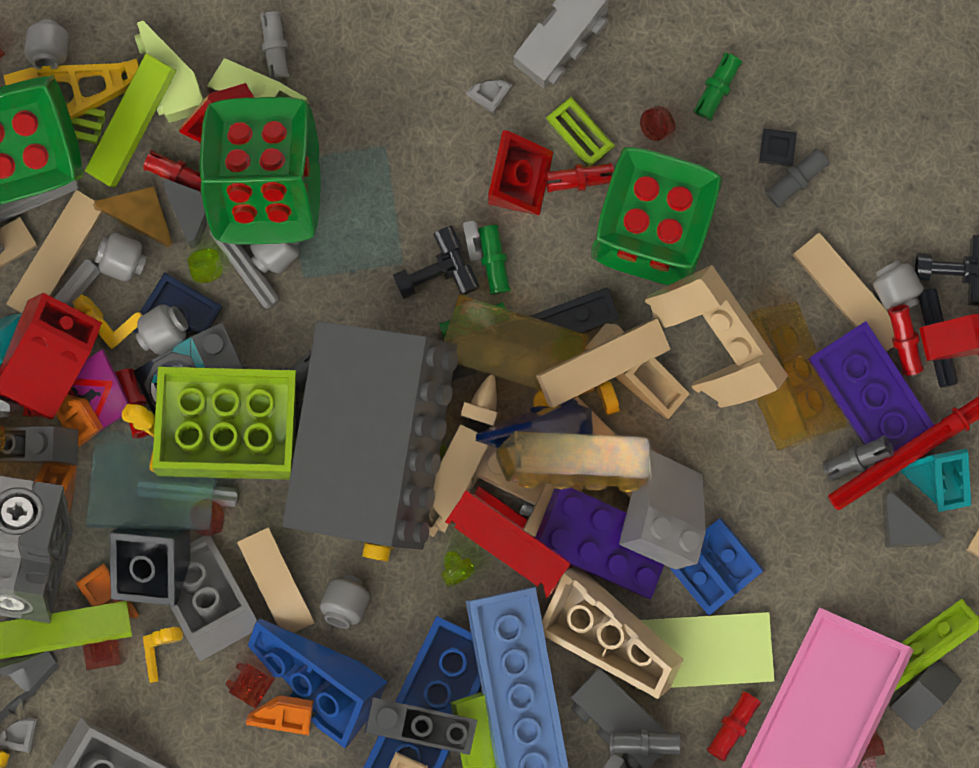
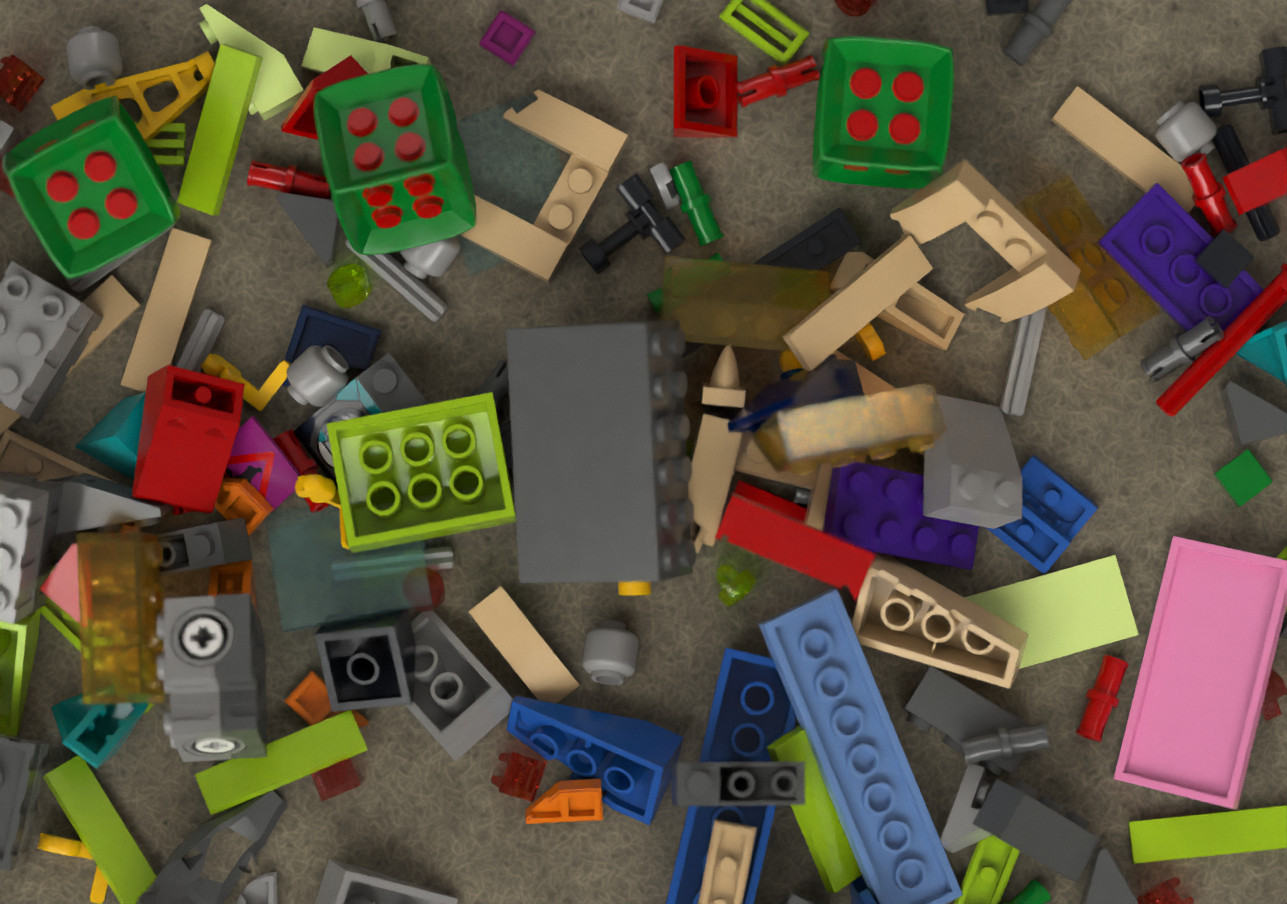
camera: 15 degrees left, 5 degrees up
(120, 257) = (245, 298): light grey head -> none
(139, 212) = (256, 239): pearl gold tile -> none
(157, 638) = (396, 747): yellow piece -> none
(374, 99) = (507, 38): none -> magenta tile
(421, 204) = (593, 154): none -> tan wedge
(728, 441) = (1022, 363): none -> light grey axle
(886, 573) = (1243, 478): none -> green tile
(906, 393) = (1223, 258): none -> black tile

